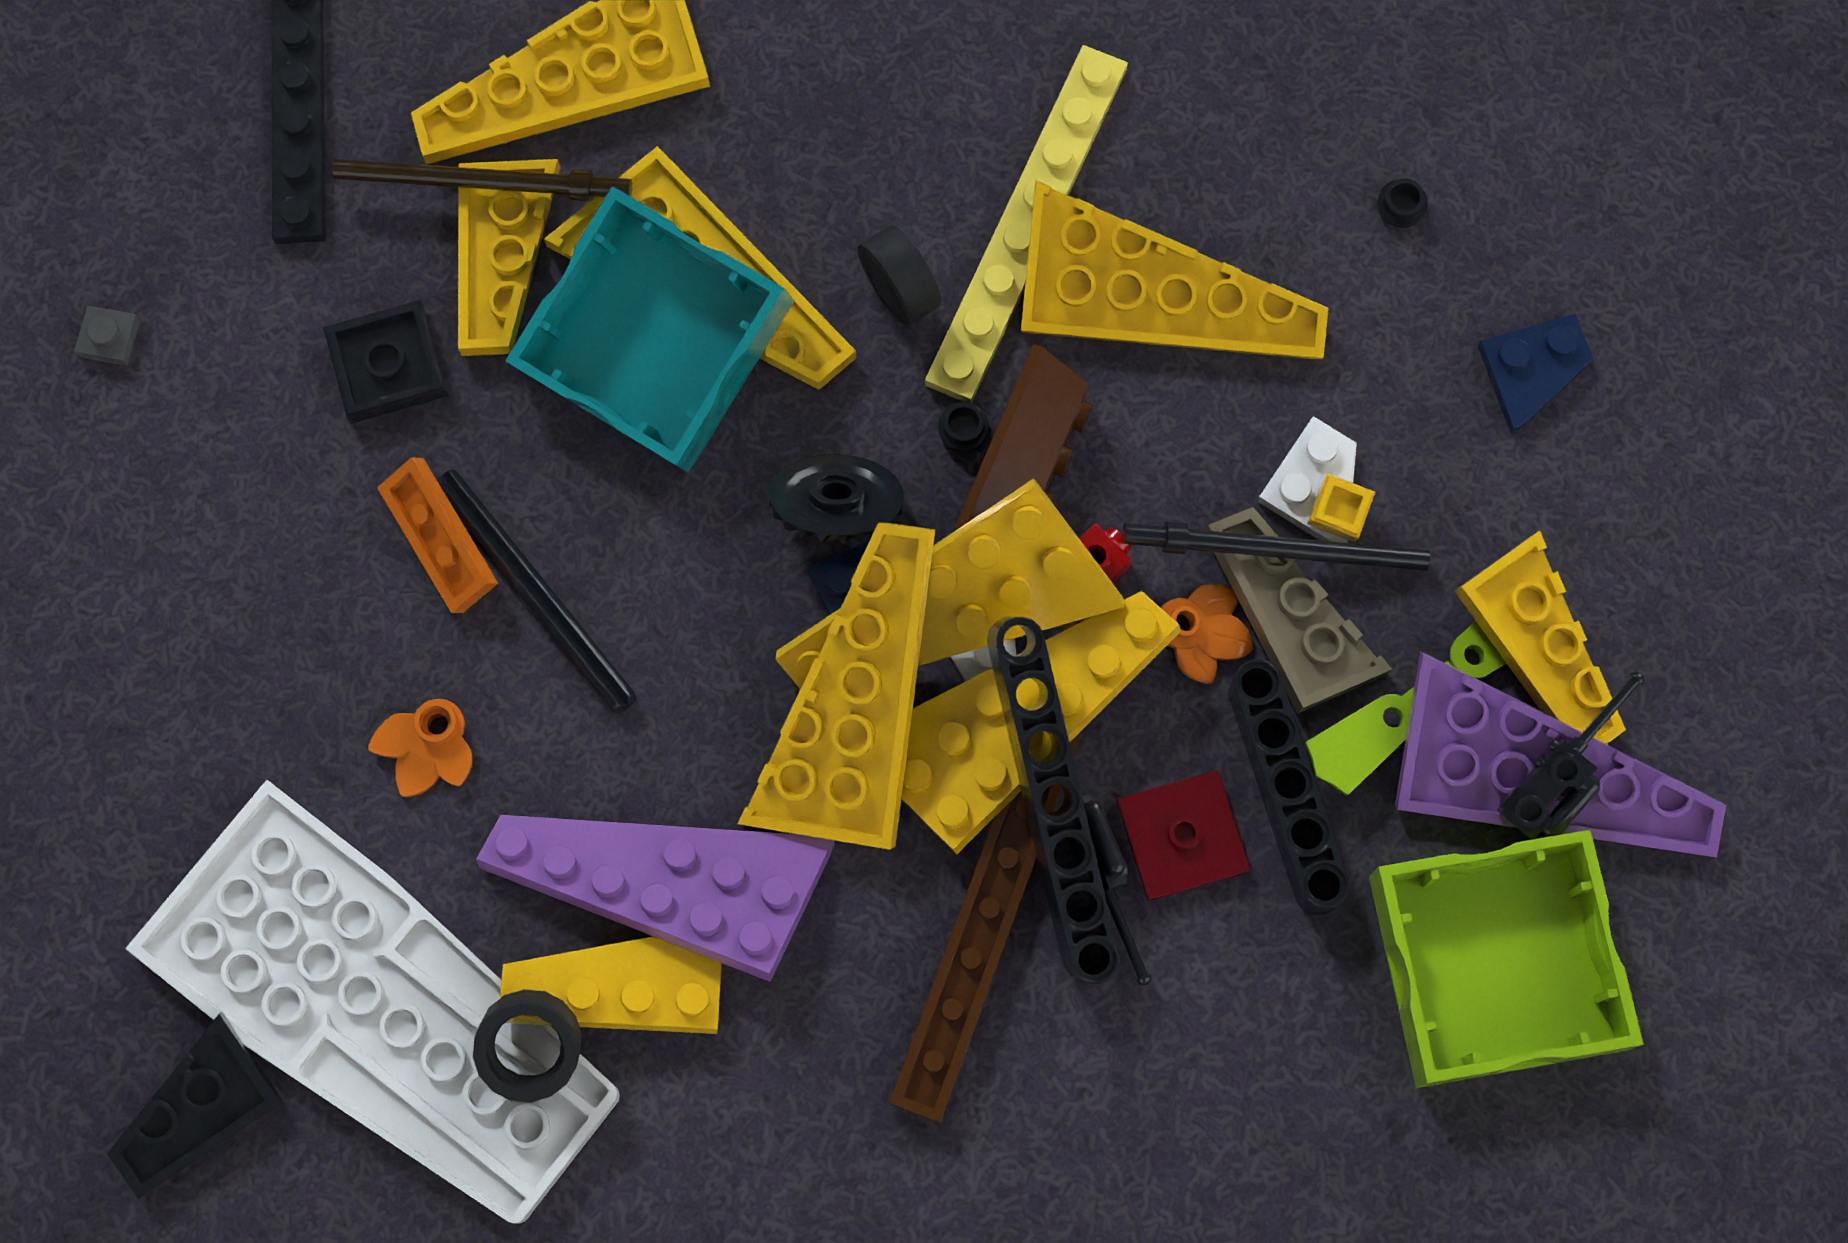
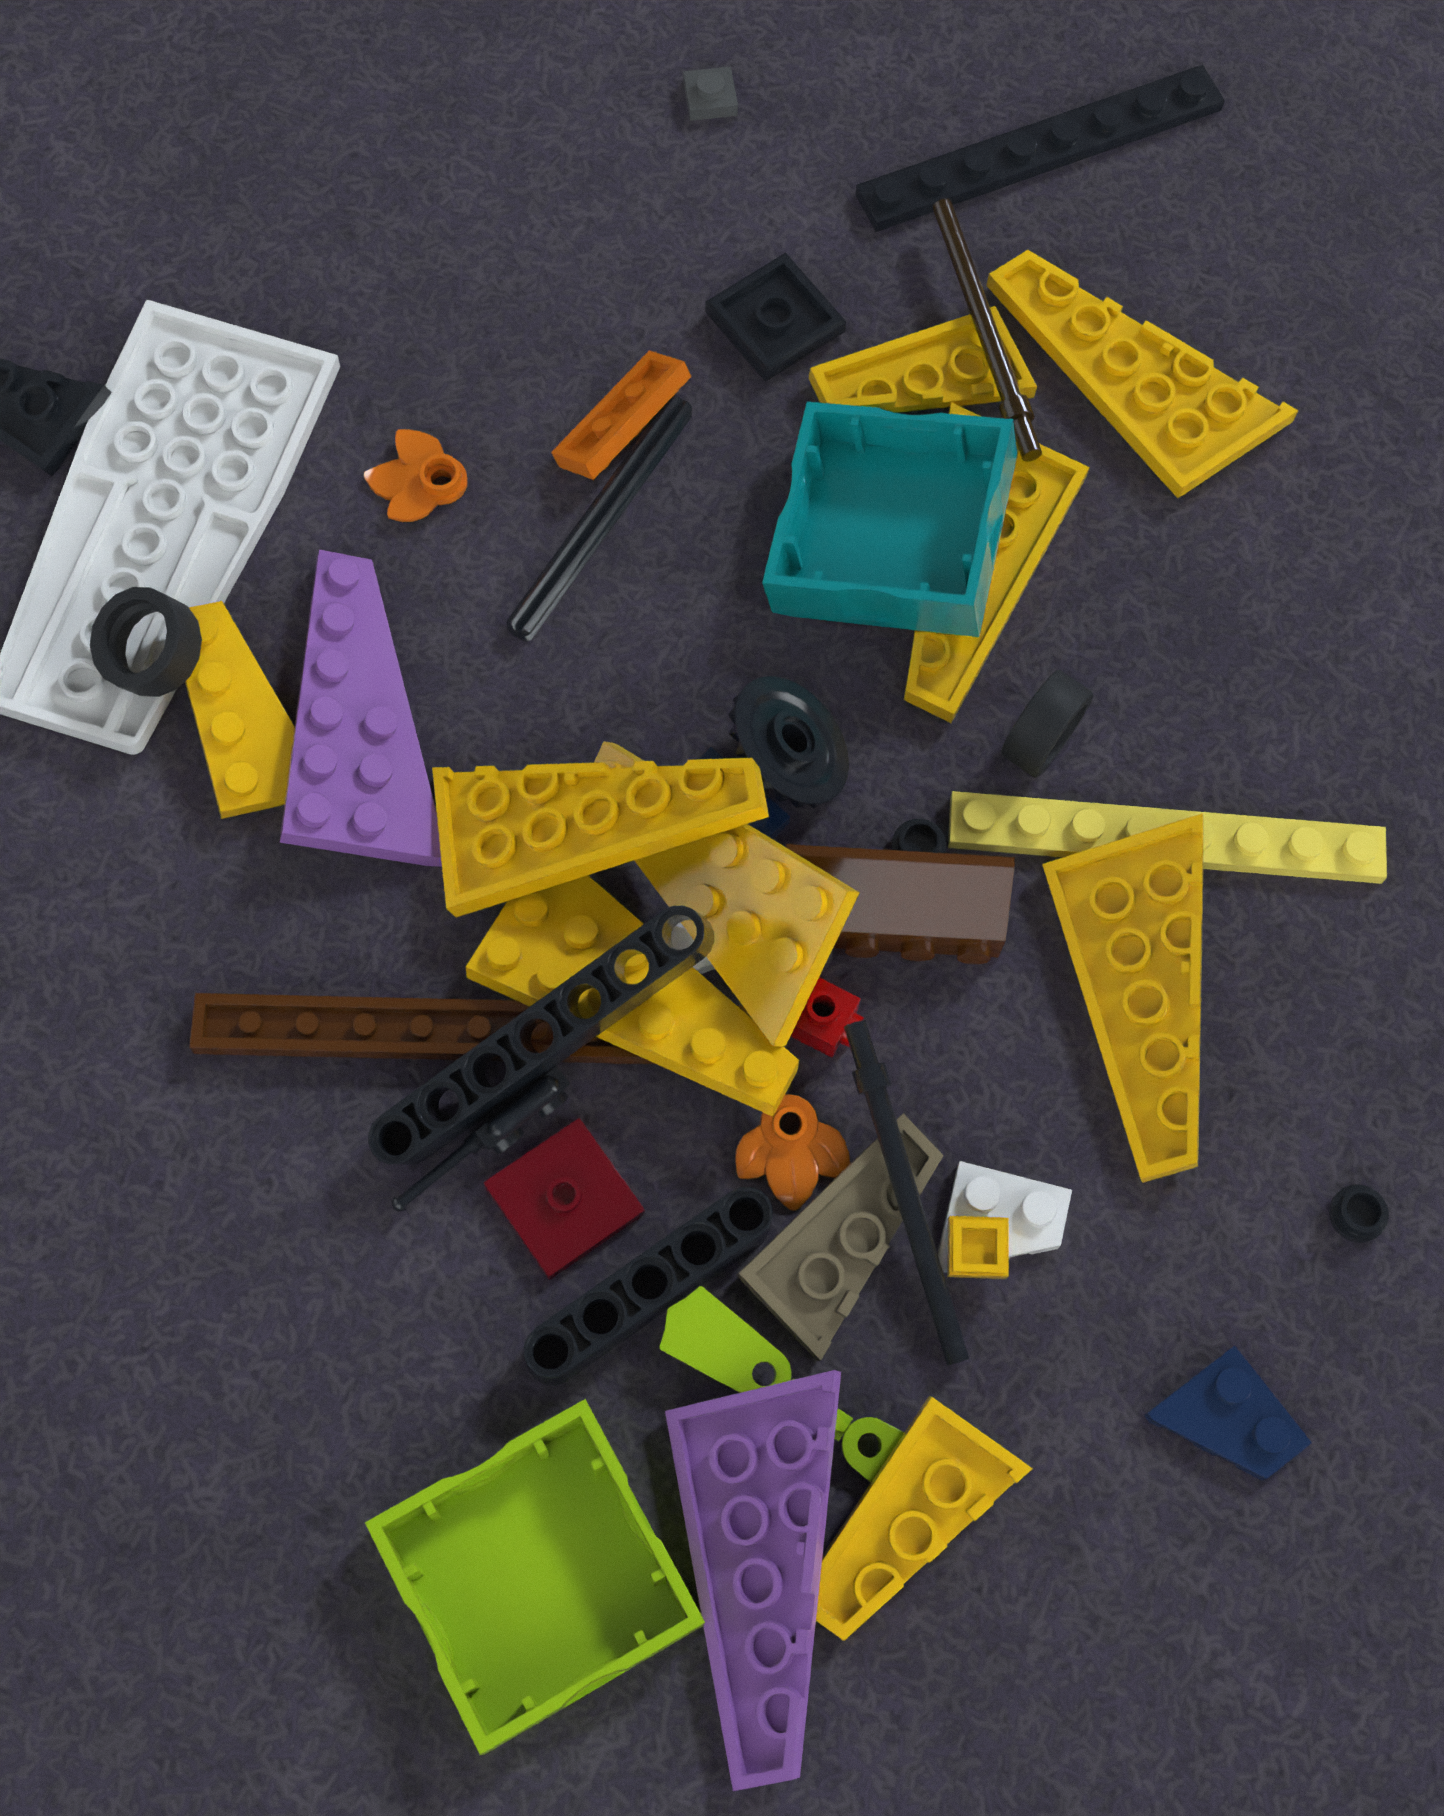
camera: 65 degrees right, 5 degrees down
(1559, 769) = (762, 1568): black piece -> none

